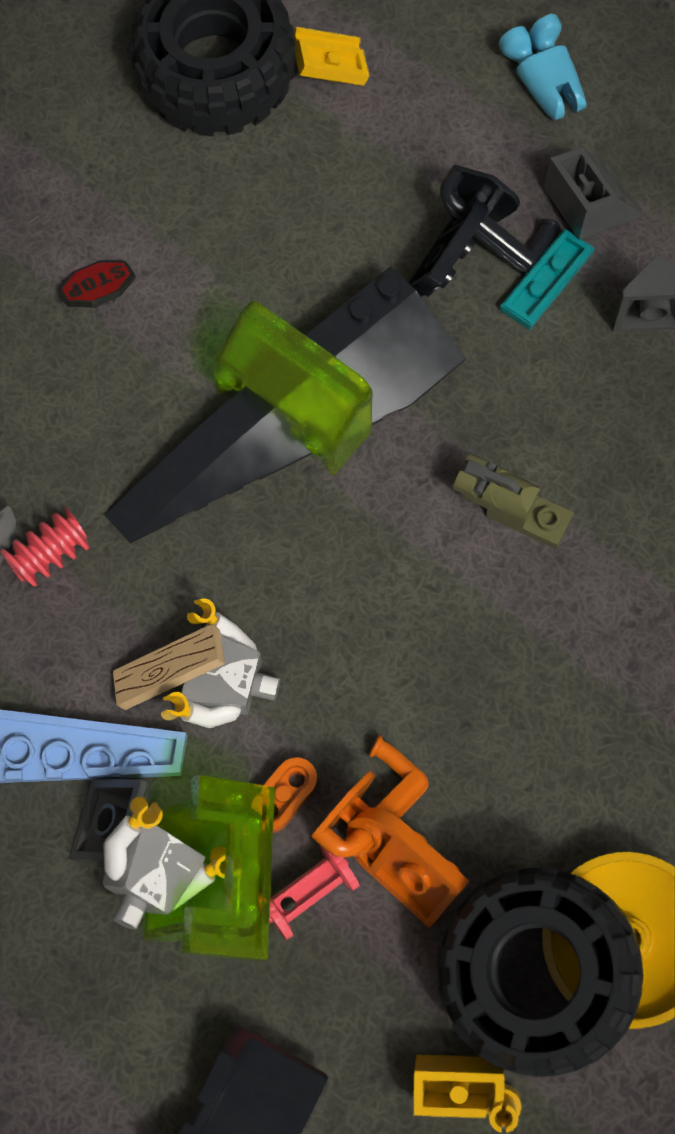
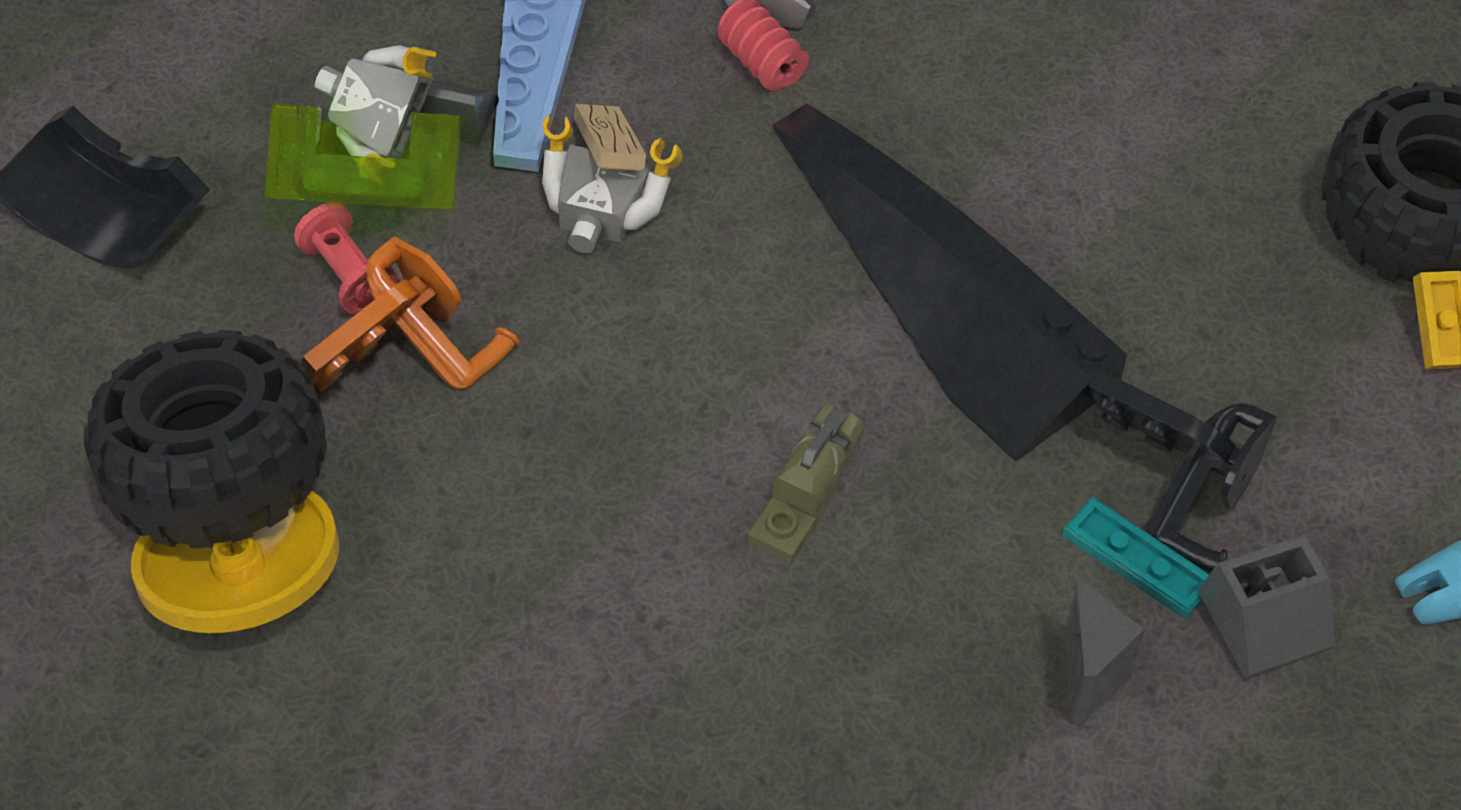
camera: 90 degrees right, 15 degrees down
(97, 283) = (1097, 87): piece -> none
(288, 798) = (462, 249): orange plate -> none
(299, 381) = (936, 237): clear neon green windscreen -> none
(464, 1089) = (95, 357): yellow hinge -> none

